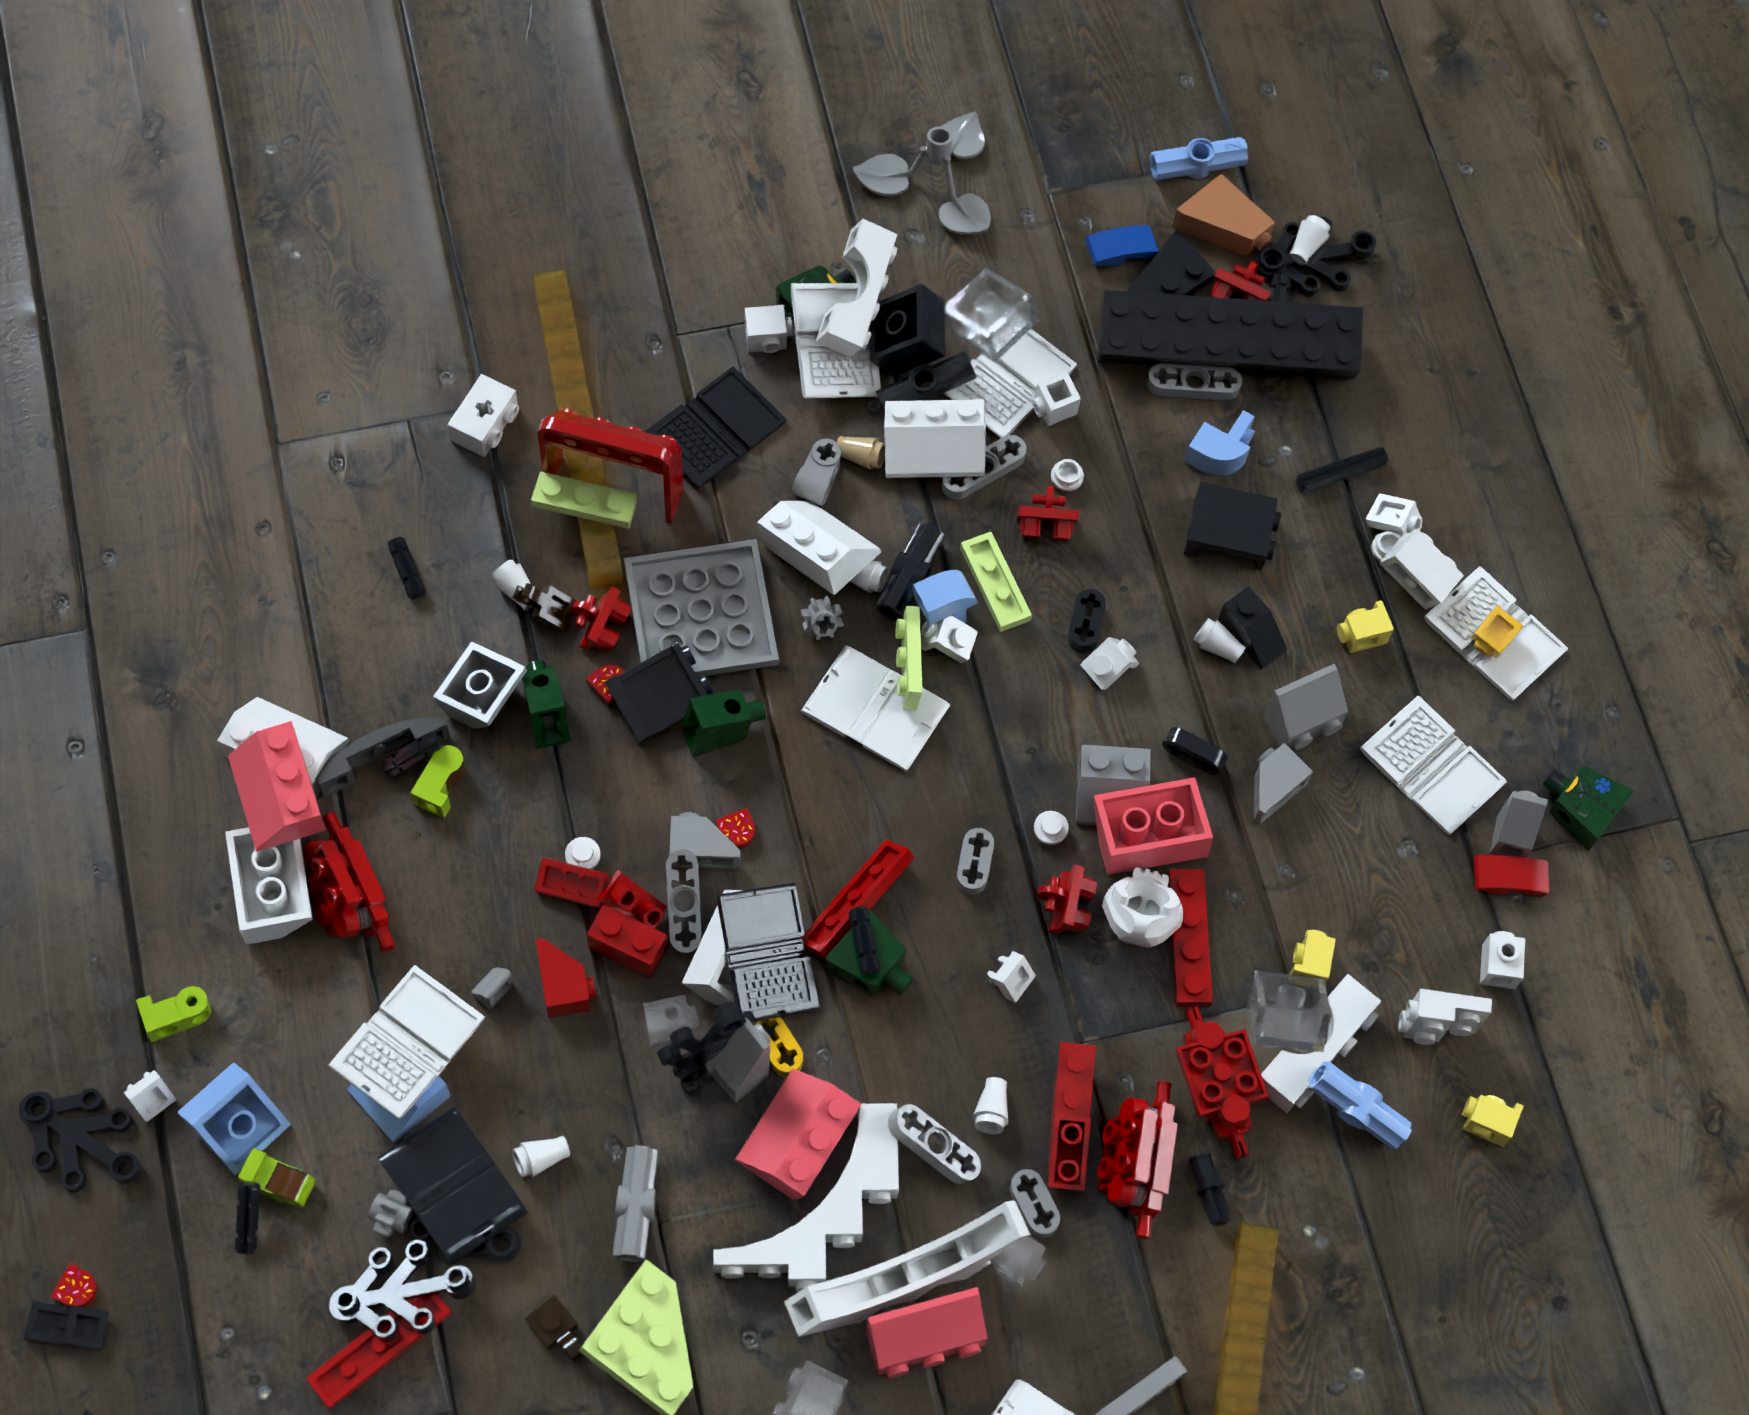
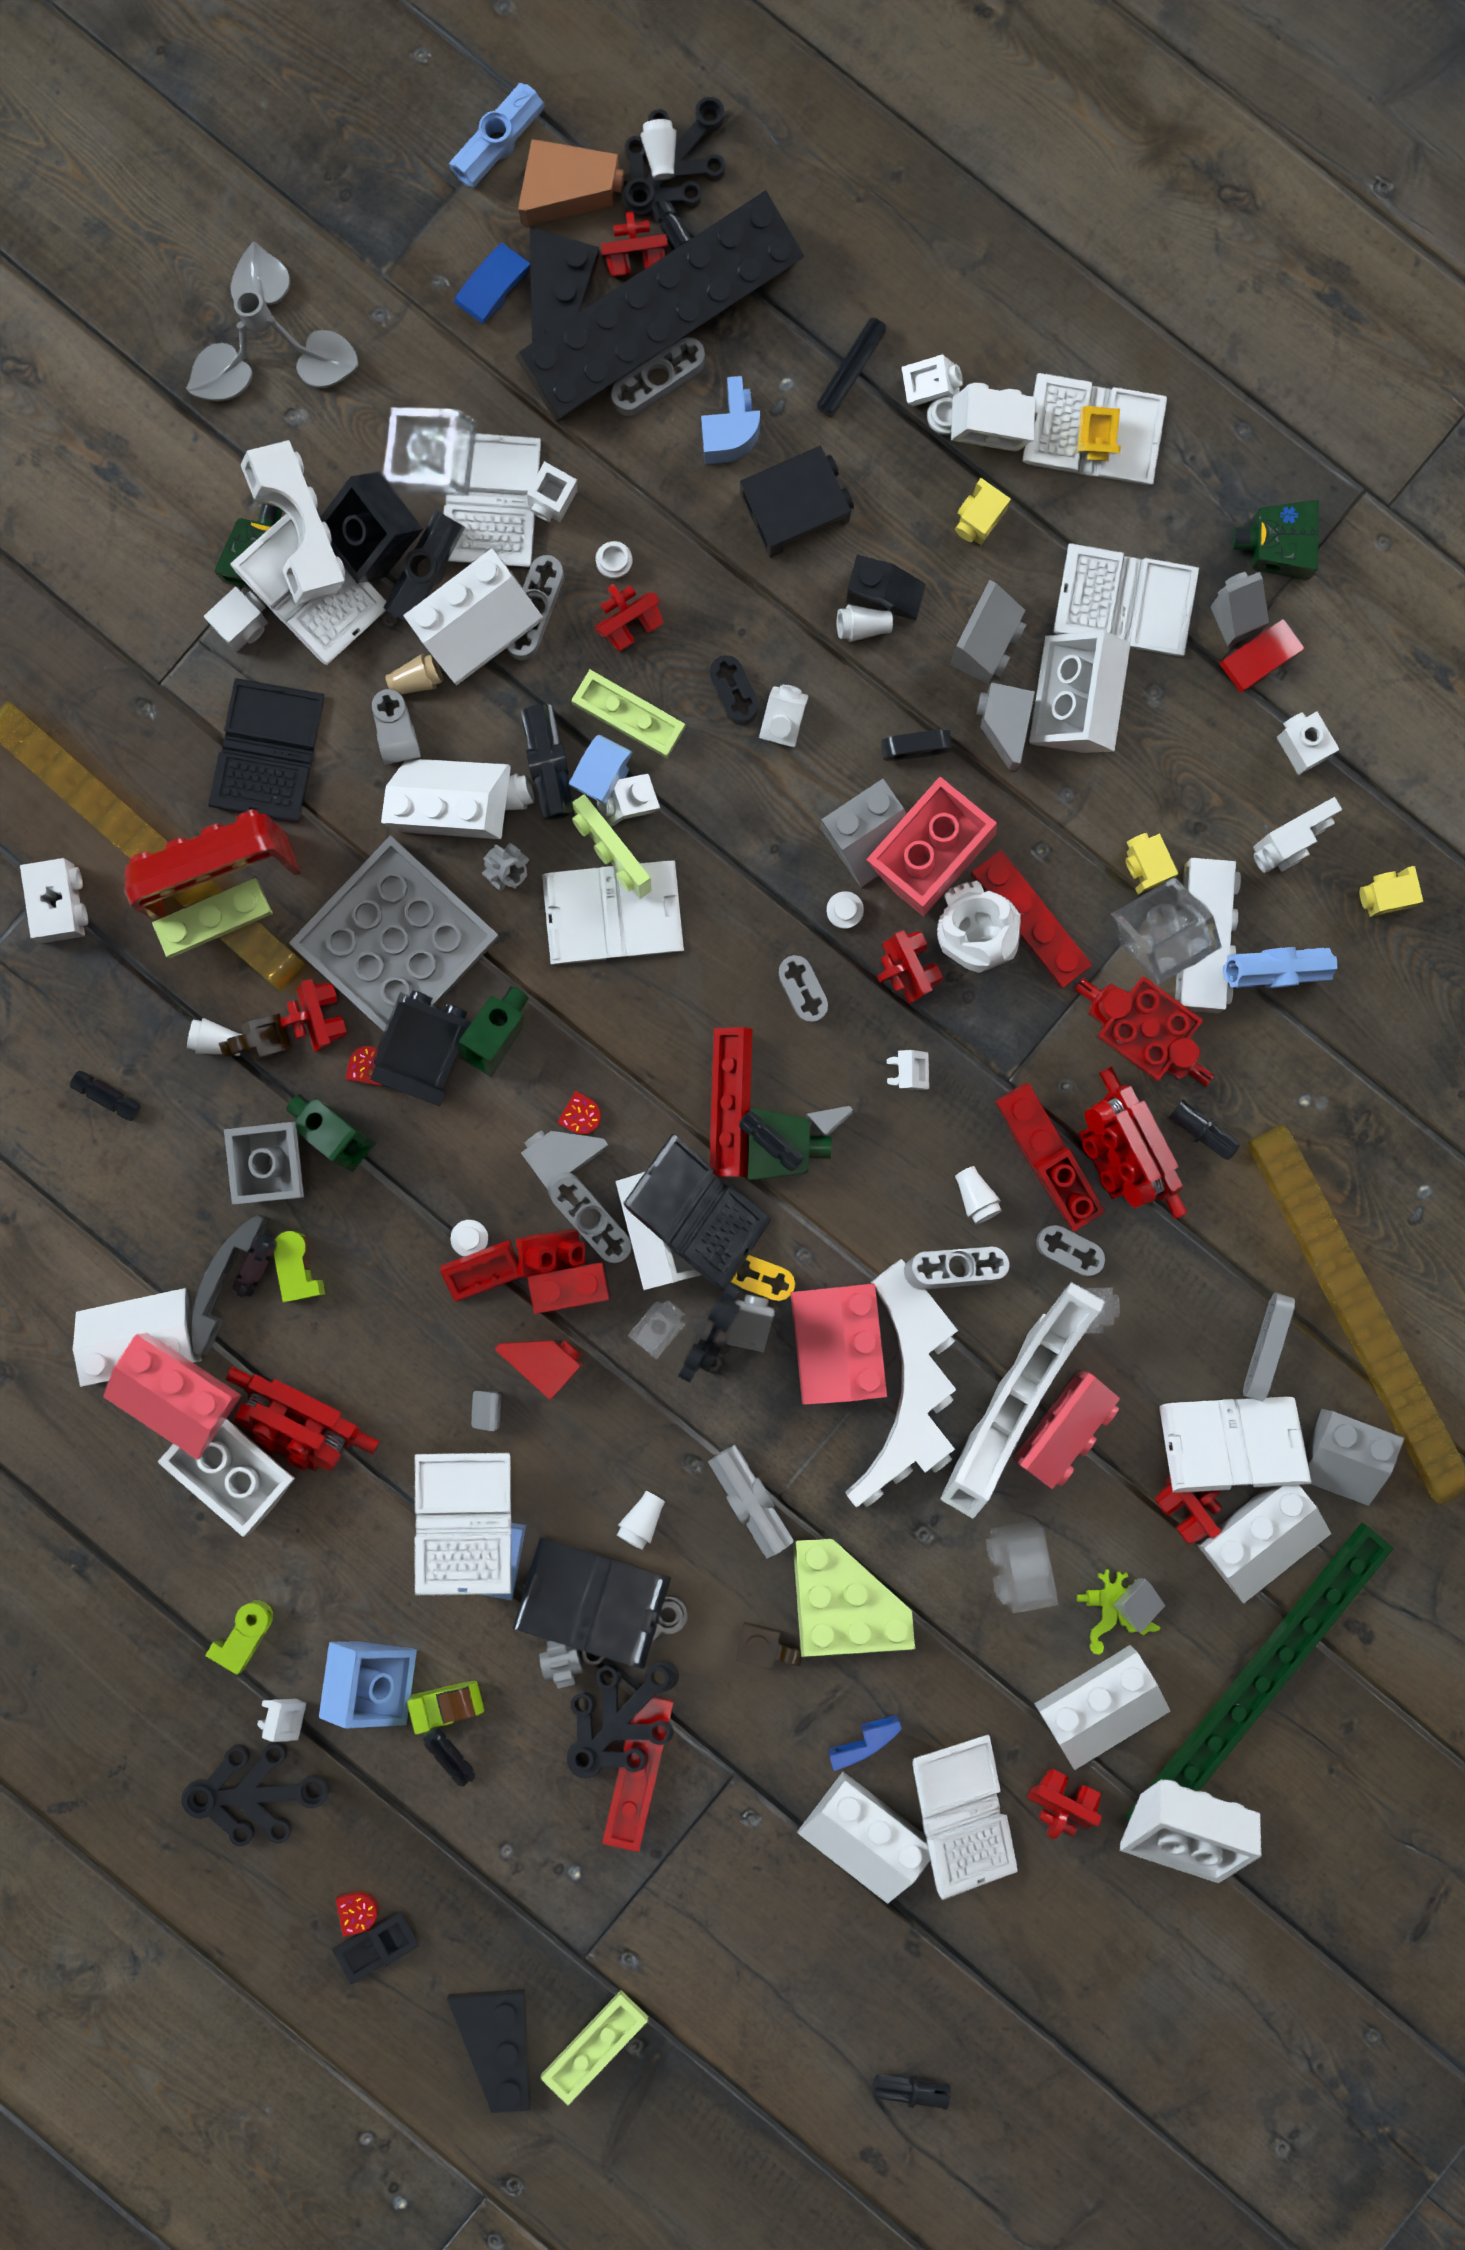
camera: 30 degrees left, 20 degrees up
(923, 965) = (829, 1120): none -> light grey slope
(1349, 801) = (1080, 692): none -> white slope

